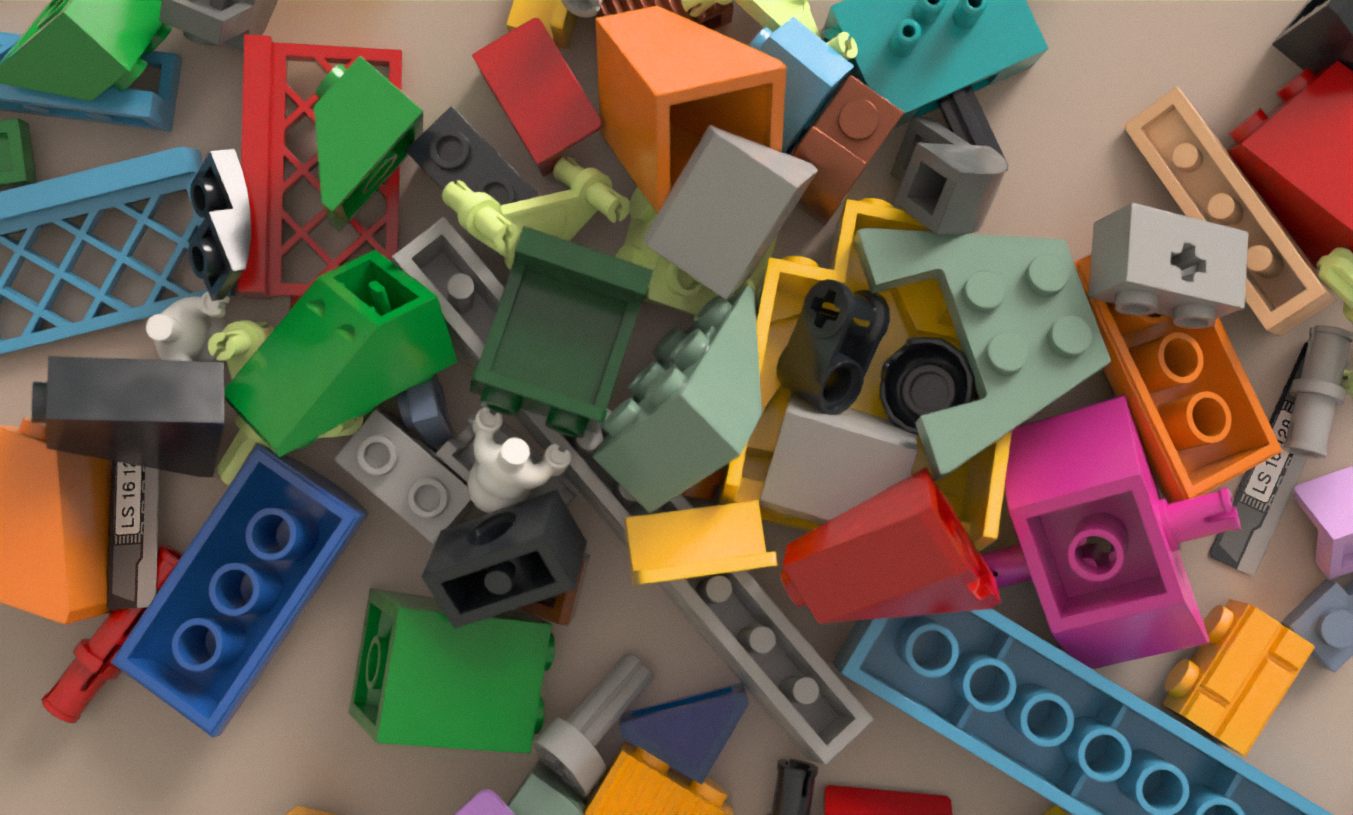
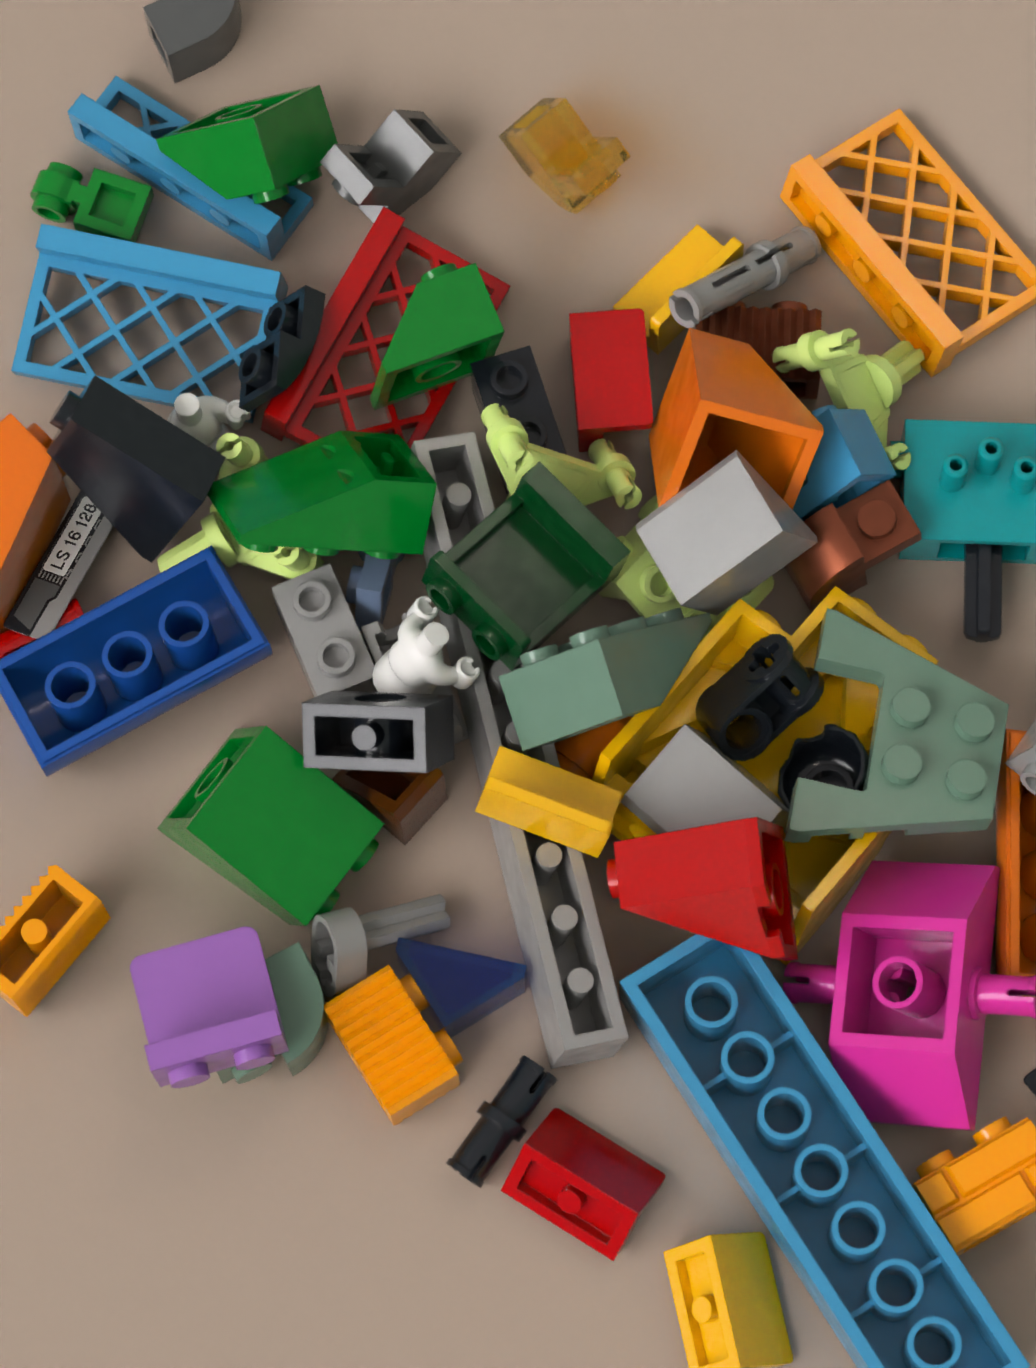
camera: 30 degrees right, 15 degrees down
(946, 178) = (932, 609): dark grey brick -> none

